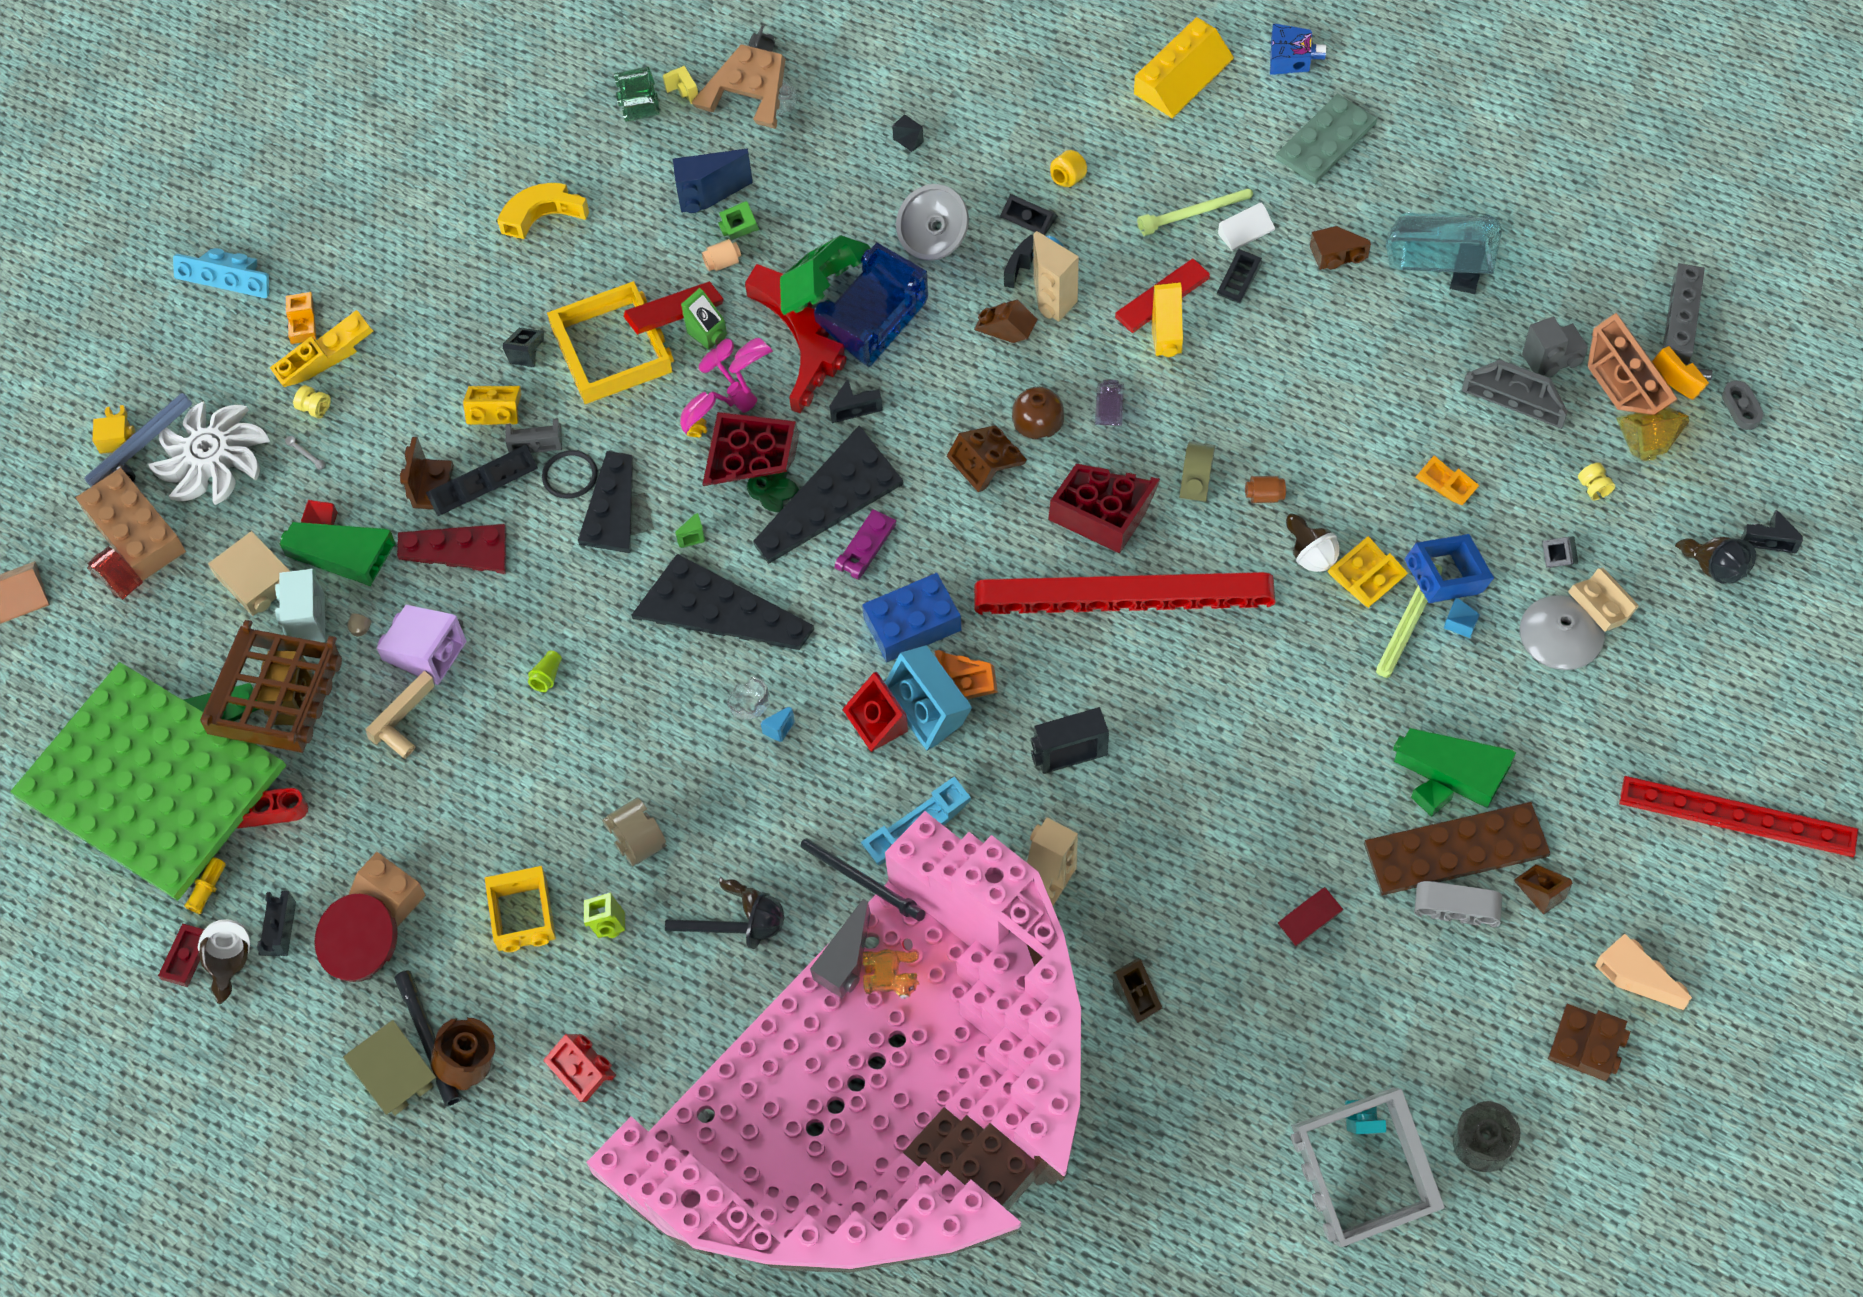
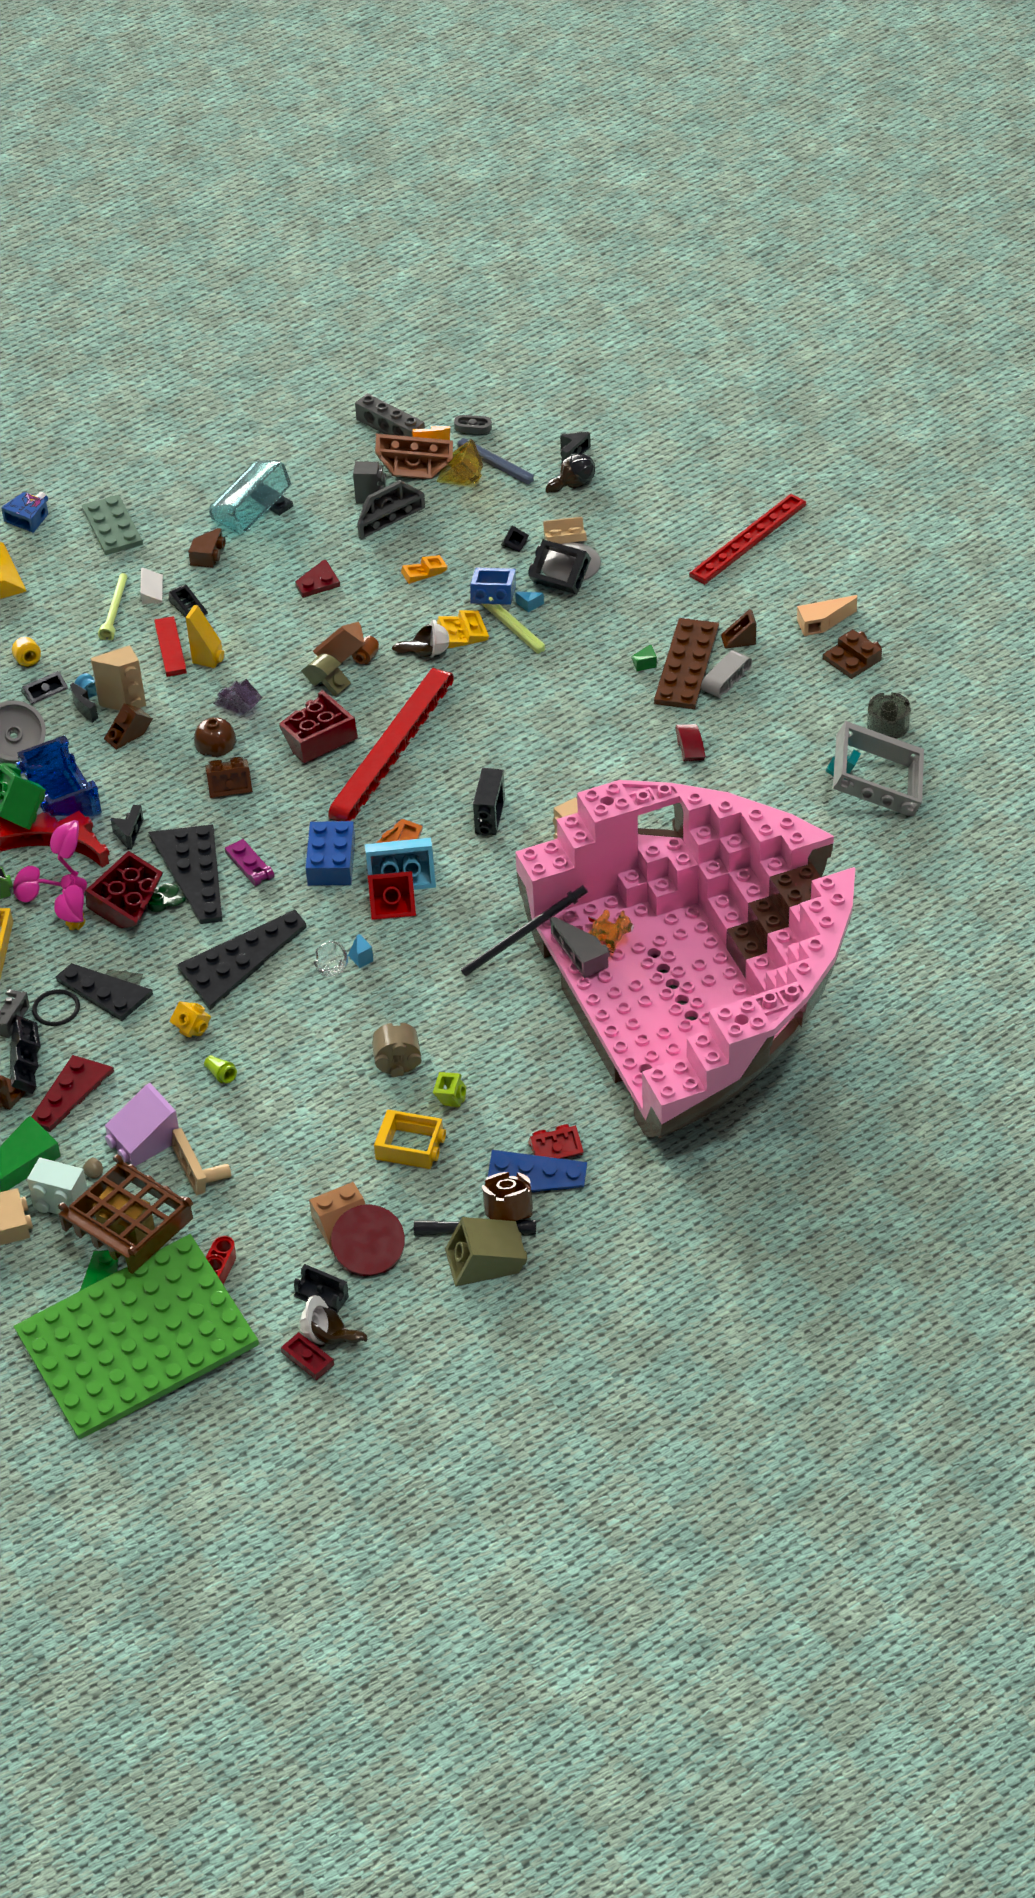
camera: 65 degrees left, 15 degrees down
(205, 885) = (264, 1336): yellow axle -> none
(526, 1063) = (543, 1172): none -> blue wing
(596, 607) = (190, 1019): none -> yellow brick
(690, 532) = (167, 949): bright green slope -> none
(706, 926) = (492, 1043): black bar -> none
(761, 909) = (504, 1005): black piece -> none
(943, 806) = (490, 903): medium azure slope -> none
(1248, 461) = (342, 642): none -> nougat slope
(1360, 382) = (317, 580): none -> dark red wing
(1459, 764) = (630, 637): green slope -> none
(1533, 647) = (577, 572): none -> black window
(1595, 480) = (473, 503): light yellow wheel -> none
(1693, 463) = (502, 464): none -> sand blue axle

